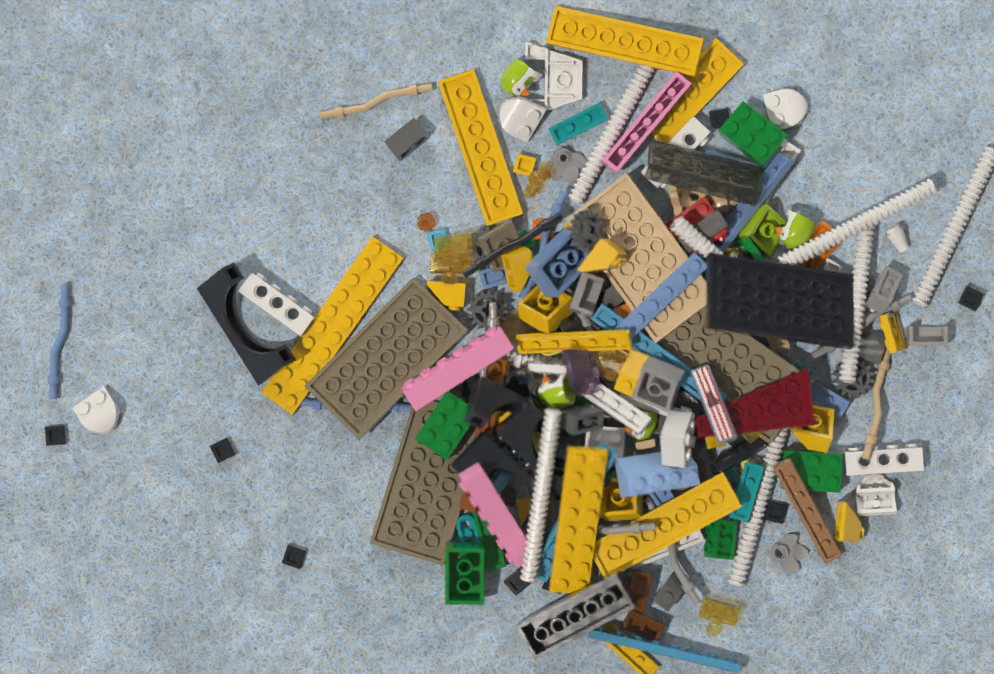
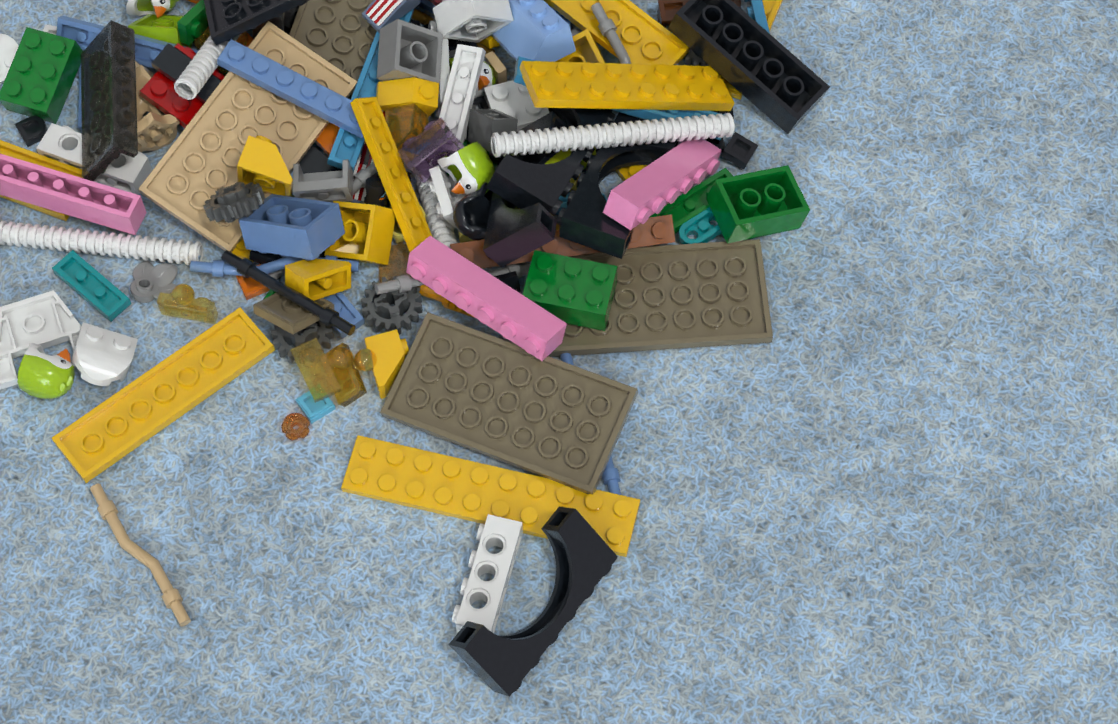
camera: 110 degrees left, 25 degrees down
(222, 450) = (732, 578): black tile -> none
(293, 556) = (837, 429): black tile -> none
(406, 139) = (183, 490): dark grey hinge -> none
(524, 165) = (171, 331): yellow plate -> none

